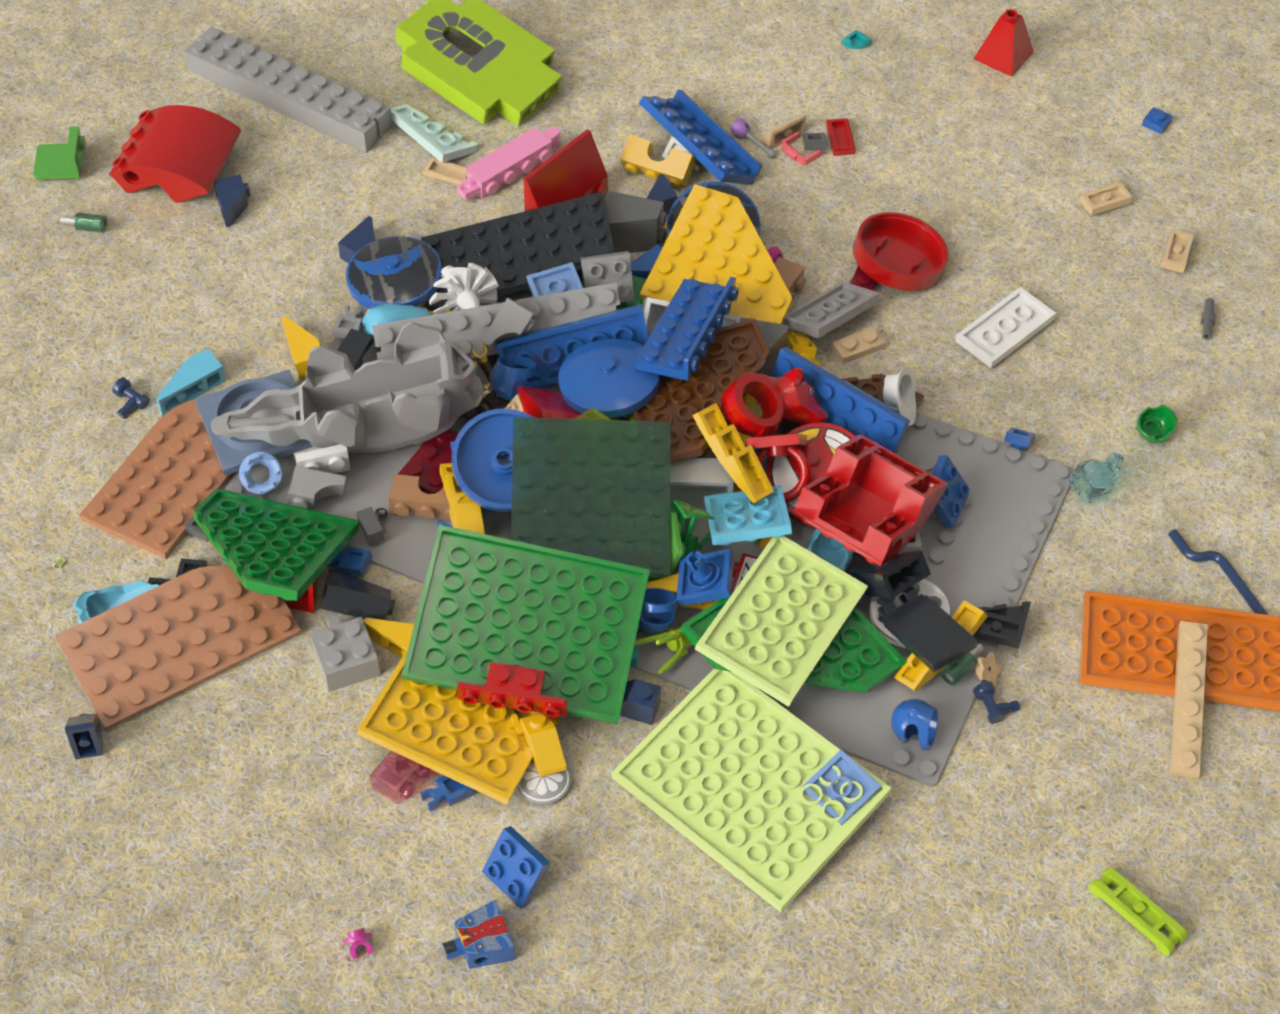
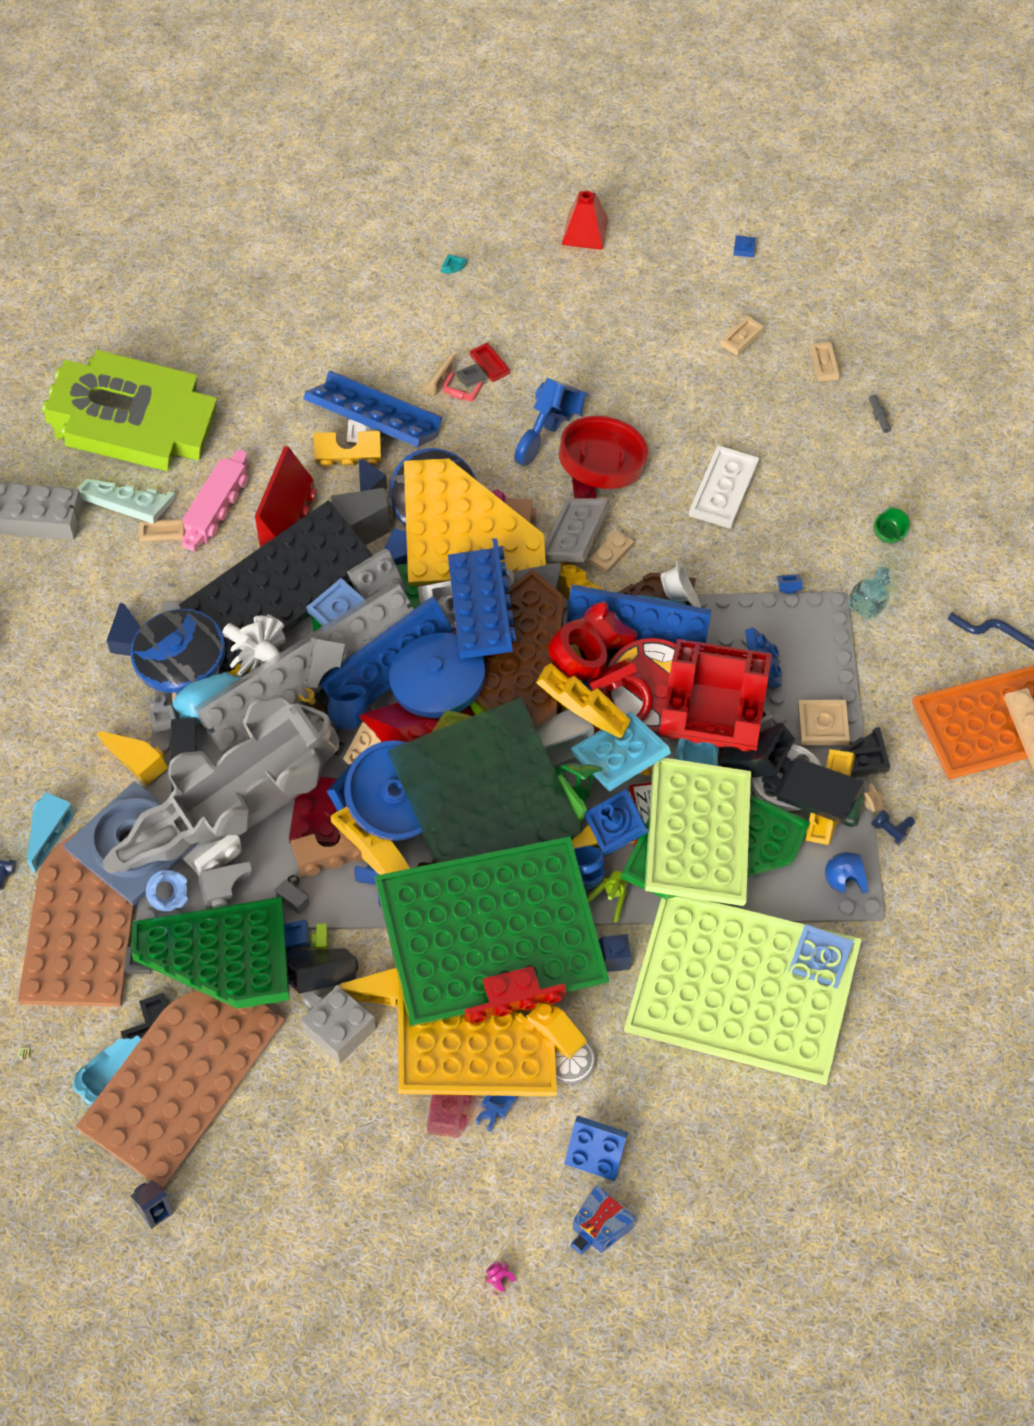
camera: 25 degrees left, 5 degrees up
(376, 572) = (320, 938): none -> lime plate
(742, 129) = (402, 388): hinge -> none
(881, 193) = (556, 403): none -> blue piece
(976, 576) = (823, 722): none -> tan plate

